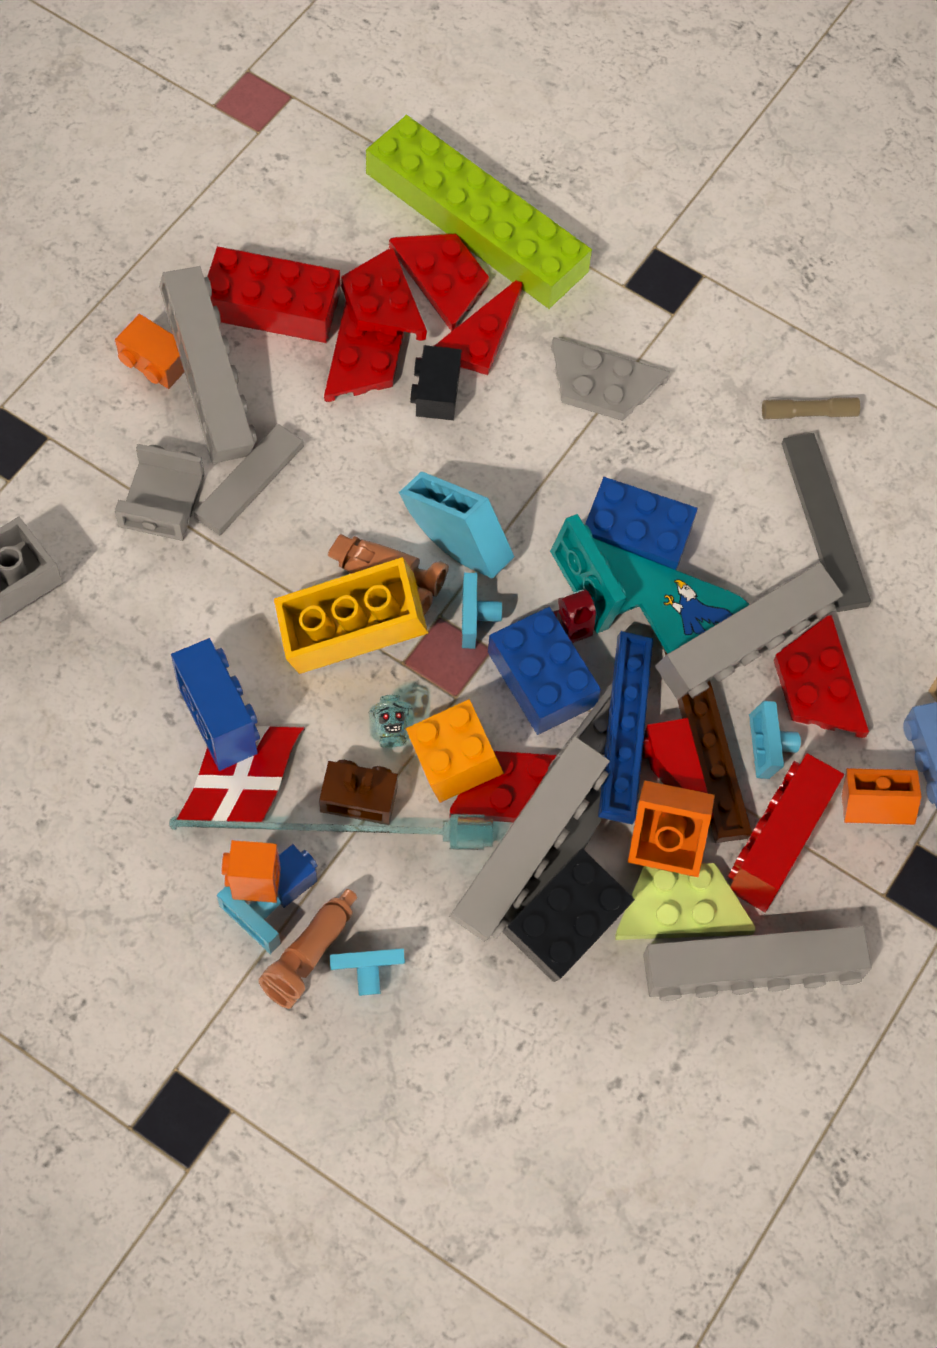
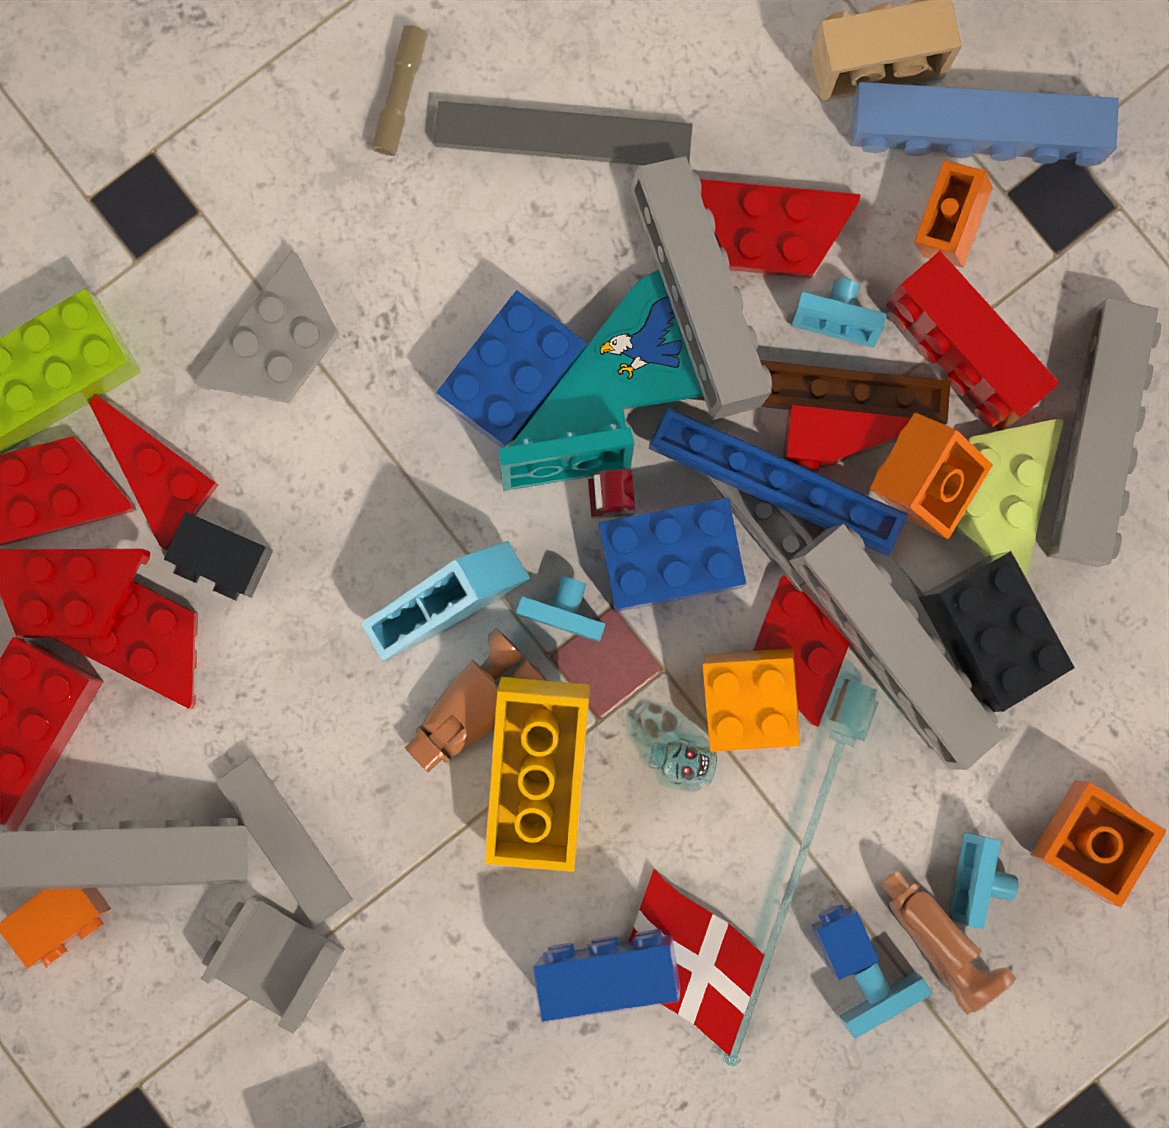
camera: 65 degrees left, 20 degrees up
(252, 871) = (861, 997): orange brick -> none
(358, 792) = (762, 827): reddish brown brick -> none
(426, 1042) = (1098, 843): none -> orange brick

